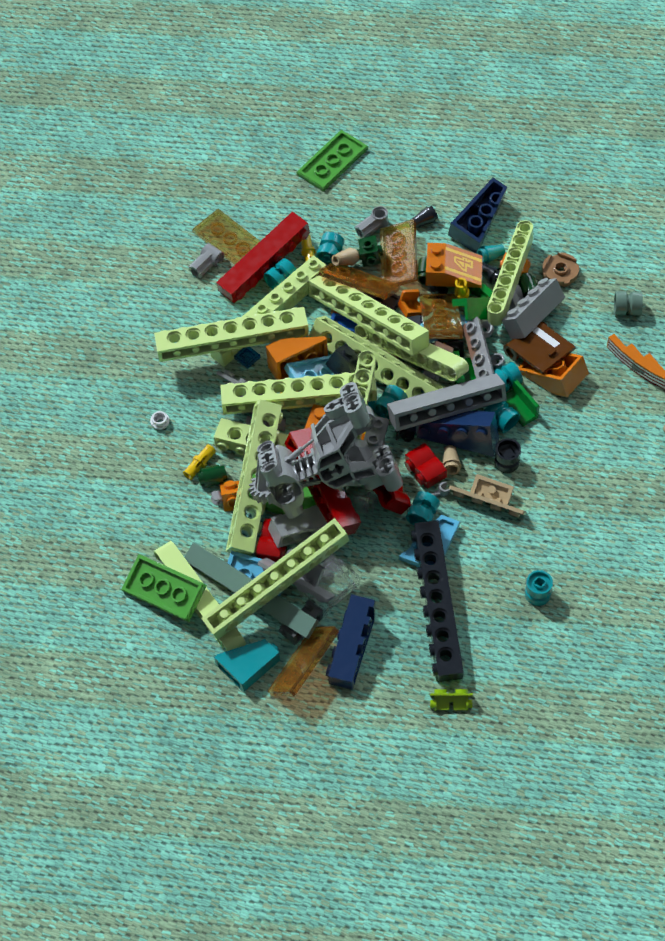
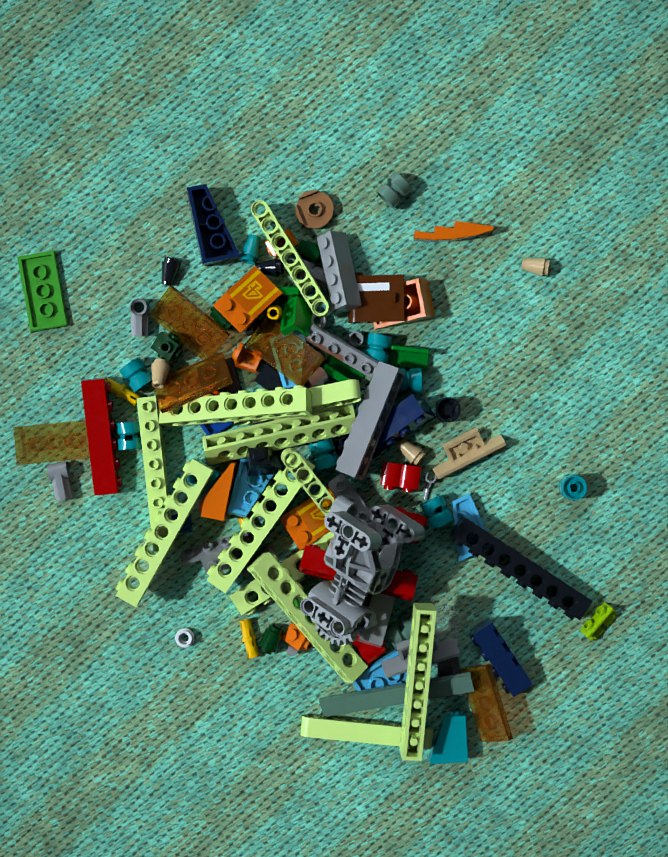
camera: 55 degrees left, 30 degrees up
(164, 587) = (340, 753): bright green tile -> none

